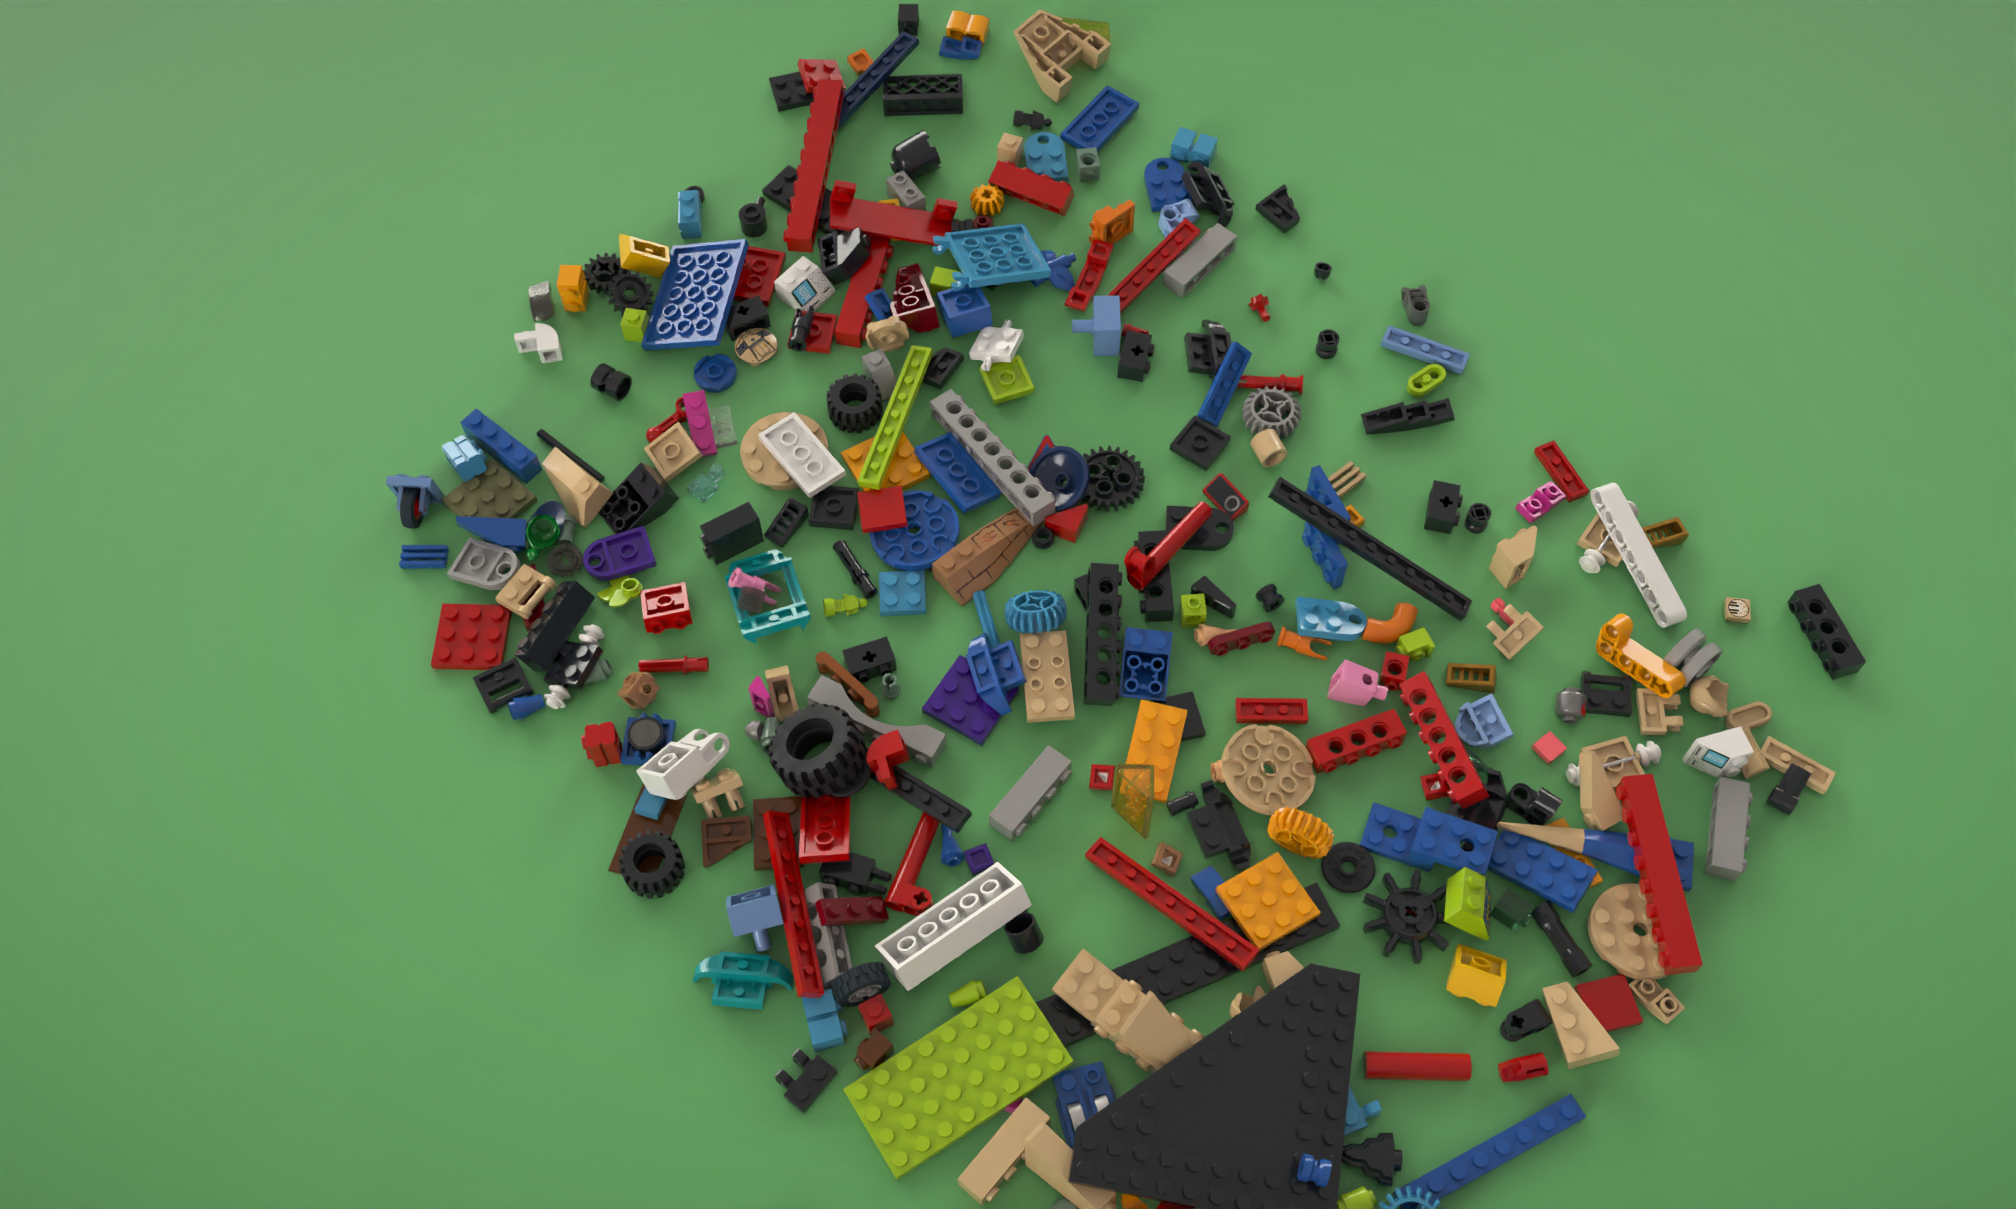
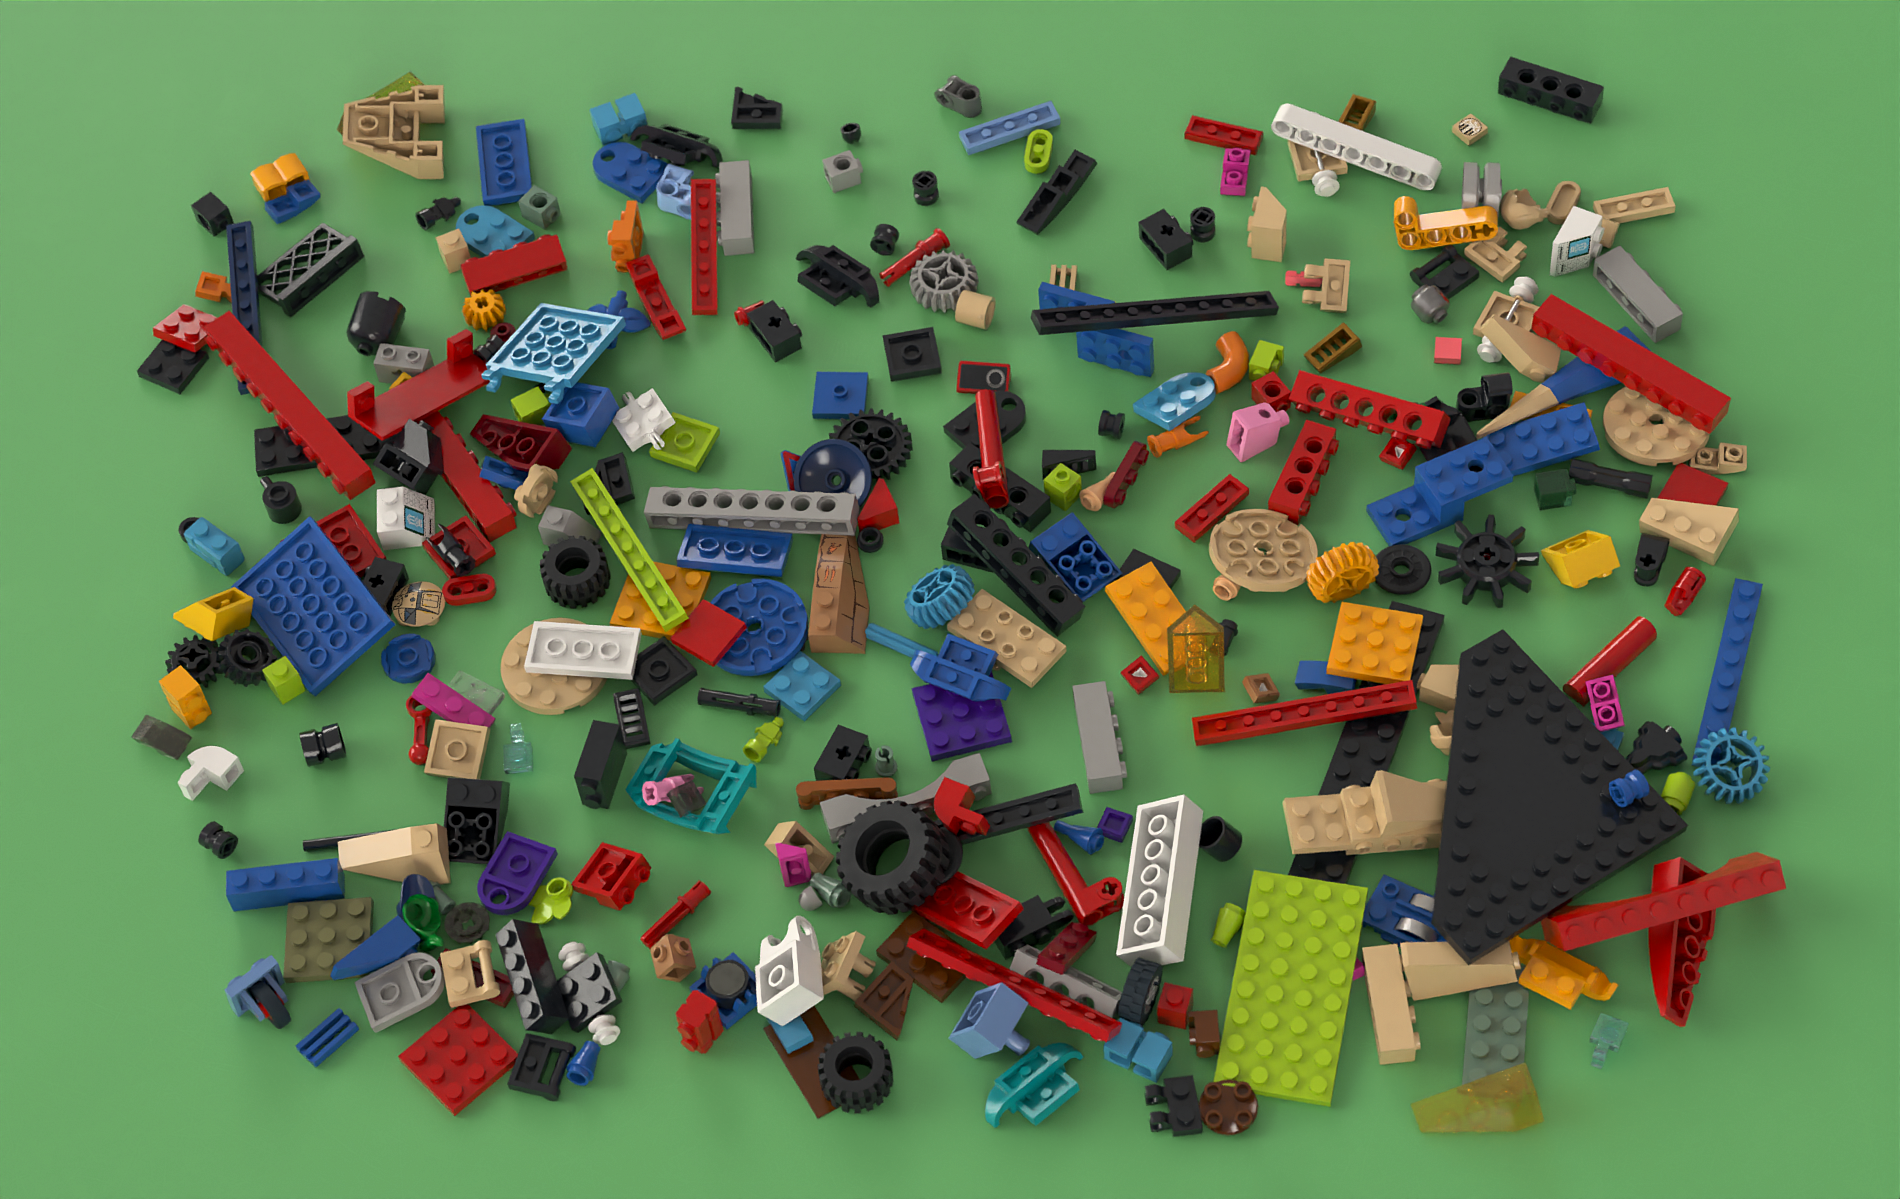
camera: 40 degrees left, 5 degrees down
(465, 457) = (265, 922): dark azure brick -> none
(500, 387) = (218, 840): none -> black wheel
(791, 362) = (469, 589): none -> red plate
(833, 1114) = (1228, 1108): none -> reddish brown dish
(1104, 326) = (722, 325): medium blue brick -> none
(1130, 430) = (839, 394): none -> blue plate
(1219, 828) = (1274, 629): black plate -> none
(1224, 384) = (880, 288): blue plate -> none
(1259, 302) = (828, 203): red plate -> none
(1265, 355) = (884, 239): none -> black wheel
(1289, 290) = (842, 171): none -> light grey brick
(1373, 1094) = (1605, 703): none -> dark pink slope
(1468, 903) = (1520, 508): lime slope -> none
(1482, 723) = (1382, 372): light blue slope -> none
(1786, 794) = (1650, 233): black piece -> none

